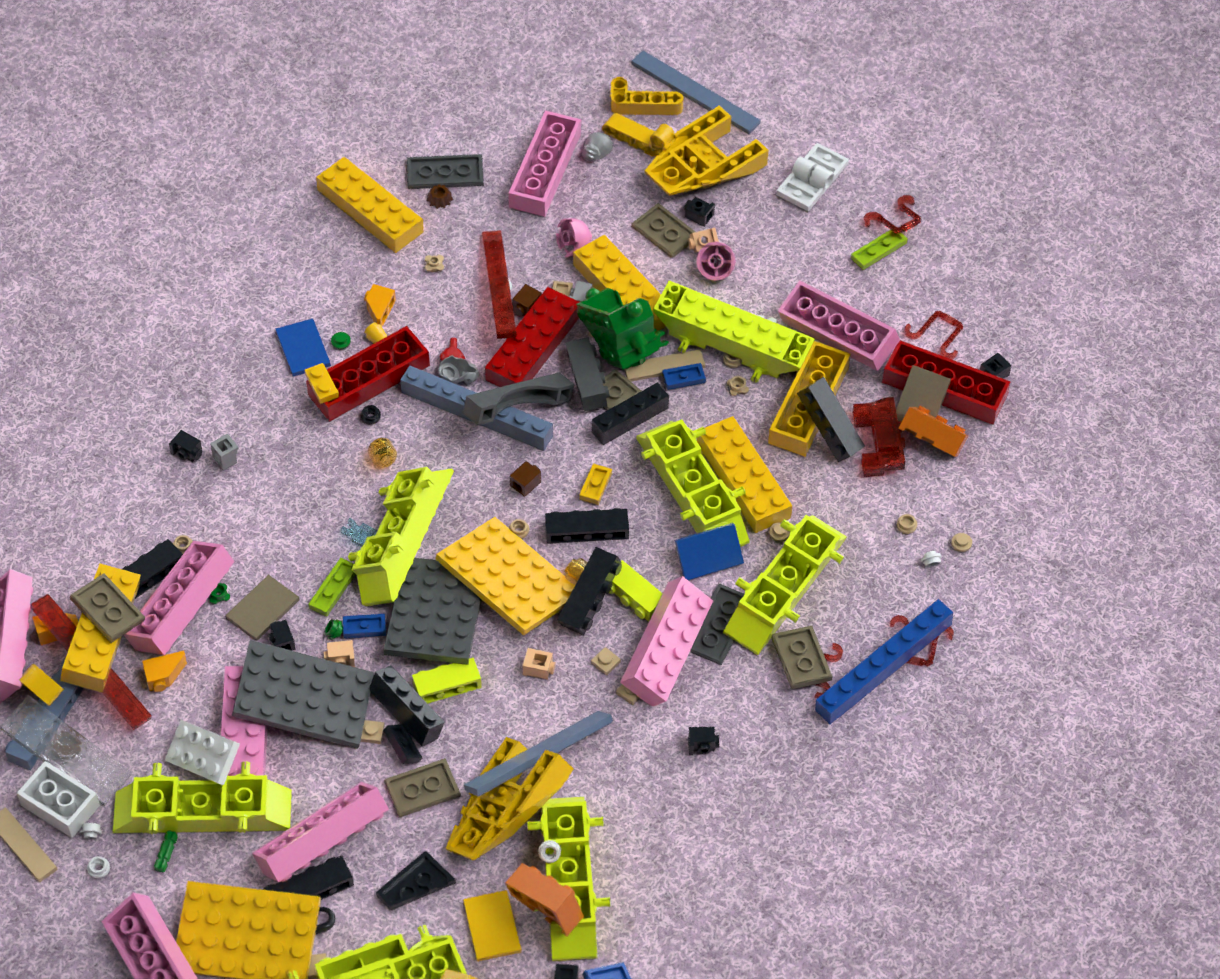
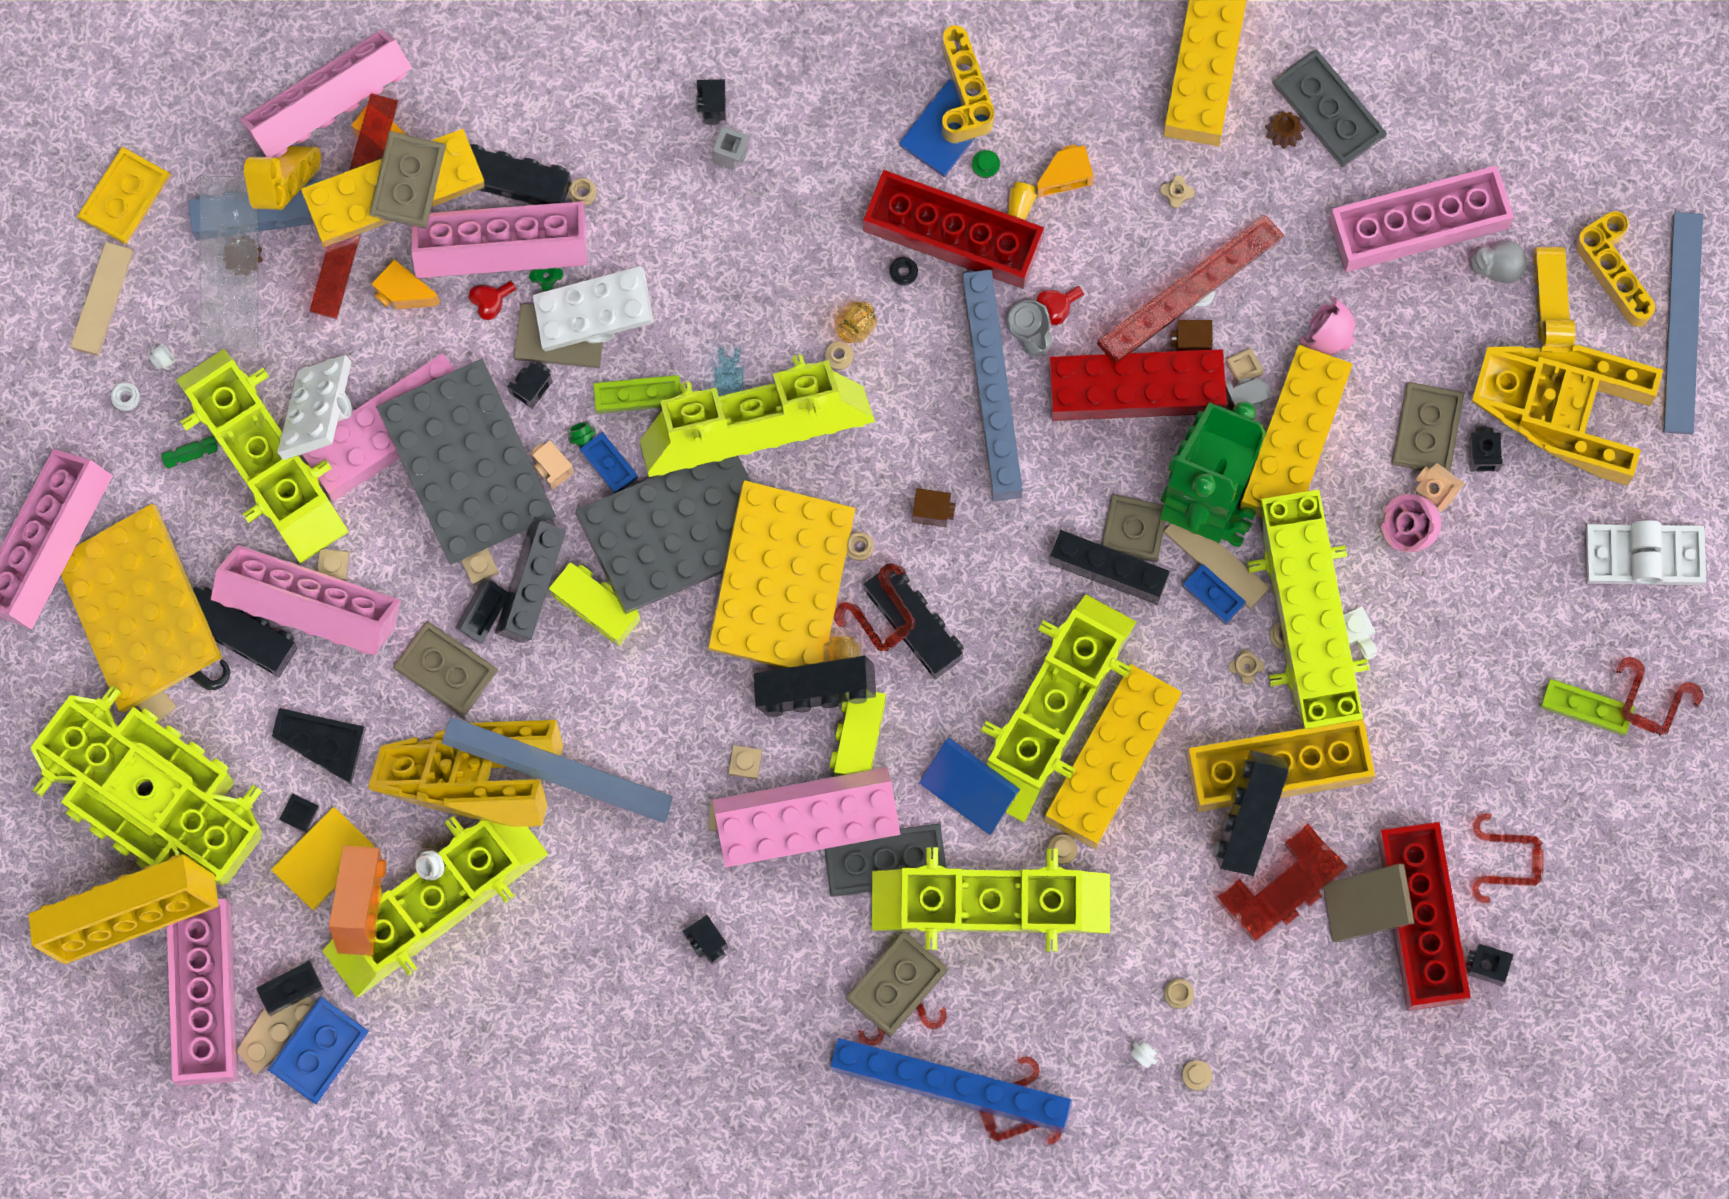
camera: 60 degrees right, 20 degrees up
(58, 799) = (169, 297): white brick -> none
(208, 630) = (490, 299): none -> red rock
(264, 574) = (593, 309): none -> white plate
(291, 317) = (963, 82): none -> yellow beam
(304, 809) = (334, 563): none -> tan plate
(321, 383) = (889, 189): yellow plate -> none
(388, 473) = (843, 363): none -> tan plate
(451, 922) = (299, 813): none -> black tile
(538, 664) = (685, 680): light nougat brick -> none
(548, 389) = (1073, 451): dark grey arch -> none
(587, 374) = (1128, 480): dark grey brick -> none
(592, 536) = (899, 634): none -> clear red piece
(595, 484) = (982, 592): yellow plate -> none
(838, 325) = (1409, 734): bright pink brick -> none
(934, 430) = (1332, 945): orange wedge -> none

